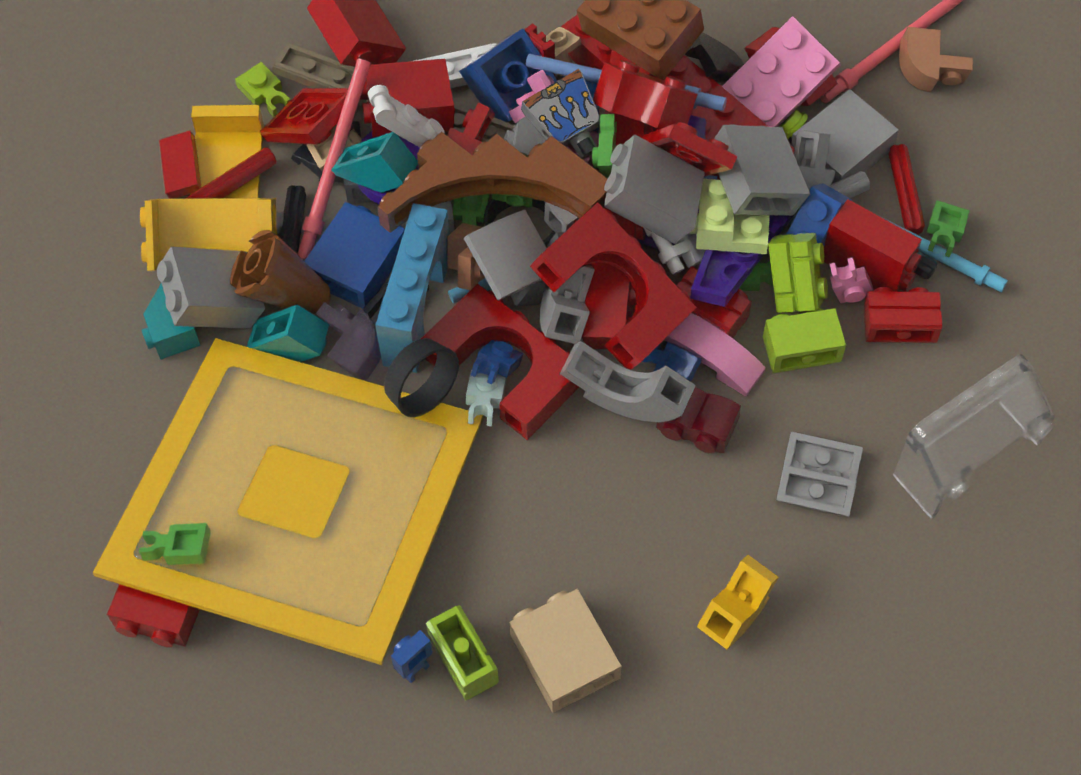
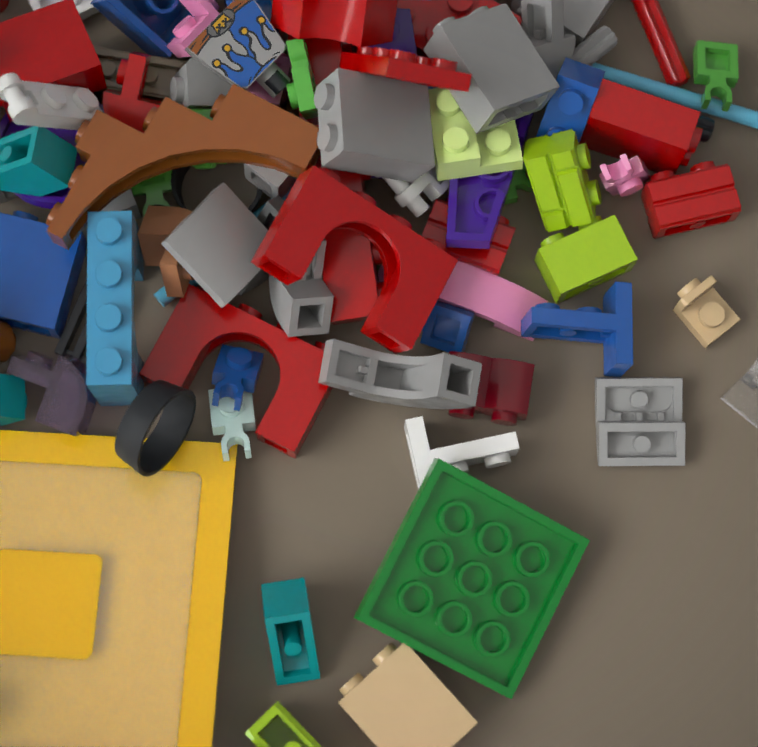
camera: 20 degrees left, 15 degrees up
(485, 565) = (290, 631): none -> teal slope
(646, 555) = (472, 578): none -> green plate
(658, 463) = (492, 450): none -> white bracket
(738, 603) = (588, 609): yellow brick -> none
(791, 388) = (589, 324): none -> blue bracket
(894, 402) = (704, 311): none -> tan bracket

